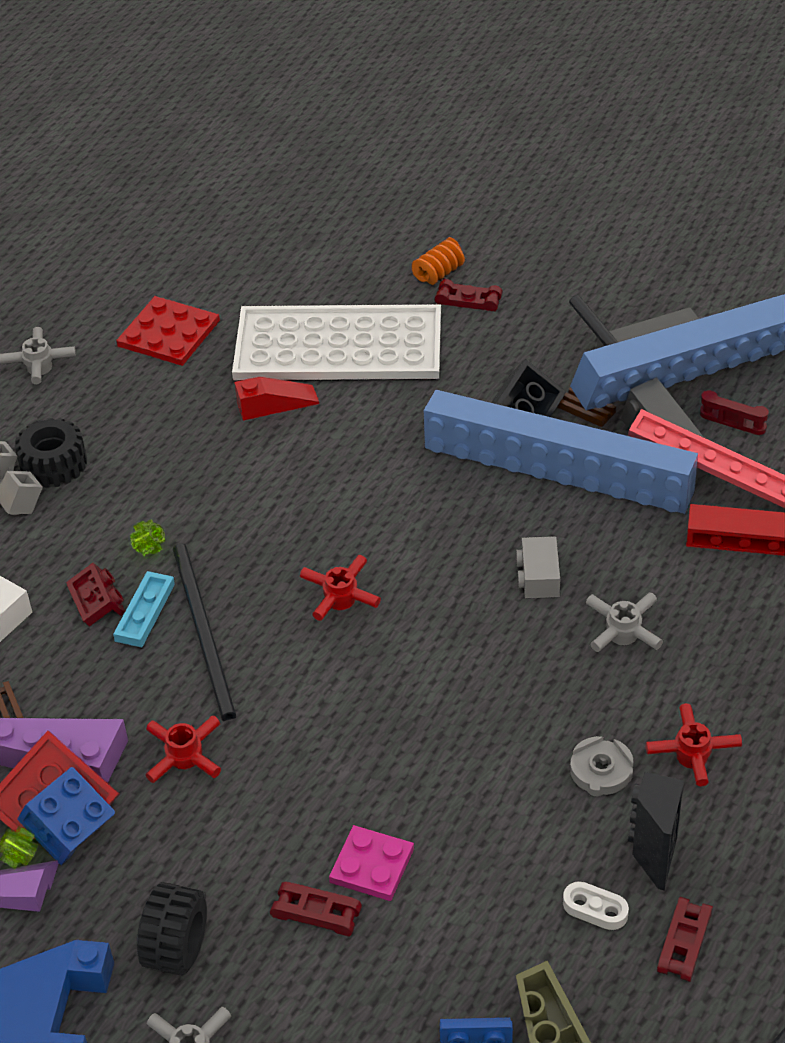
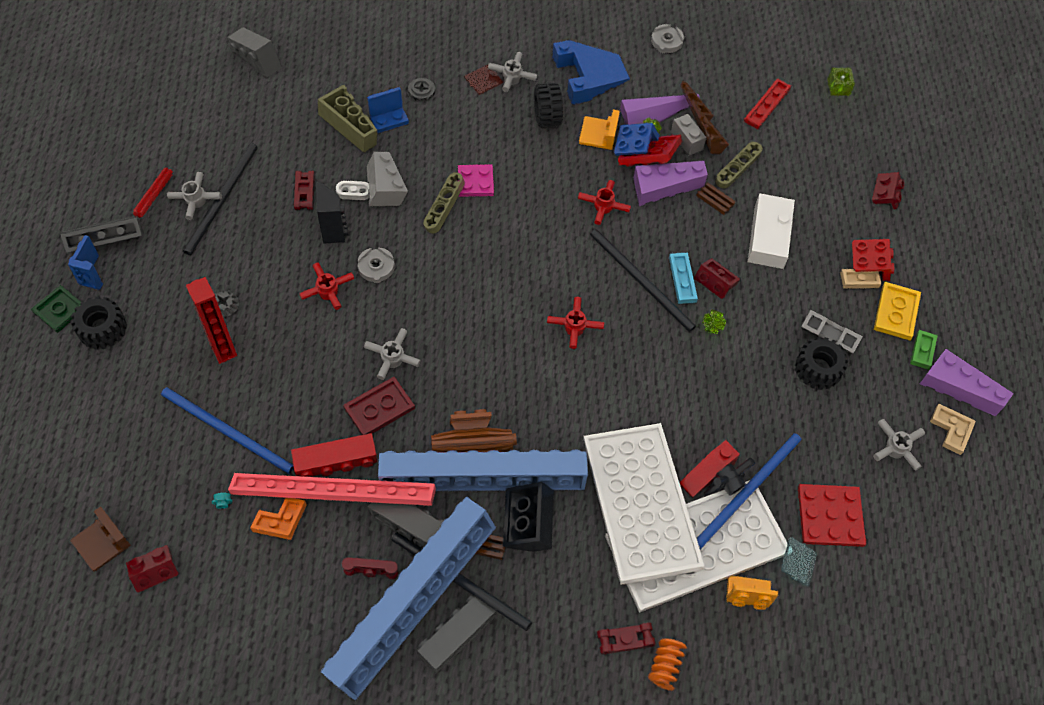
camera: 150 degrees right, 15 degrees up
(102, 875) = (599, 132): none -> light orange bracket
(240, 299) = (798, 561): none -> clear light blue piece
(247, 359) = (745, 493): none -> blue piece
(265, 359) = (730, 478): none -> black bar
(315, 281) = (750, 592): none -> light orange bracket
(316, 907) = (491, 149): dark red plate -> none
(378, 383) = (642, 504): none -> white plate
(450, 831) = (447, 203): none -> olive beam
(537, 886) = (385, 181): none -> light grey wedge
(540, 567) = (460, 381): light grey brick -> none
(553, 500) = (473, 434): none -> dark orange plate
(665, 571) = (379, 406): none -> dark red plate

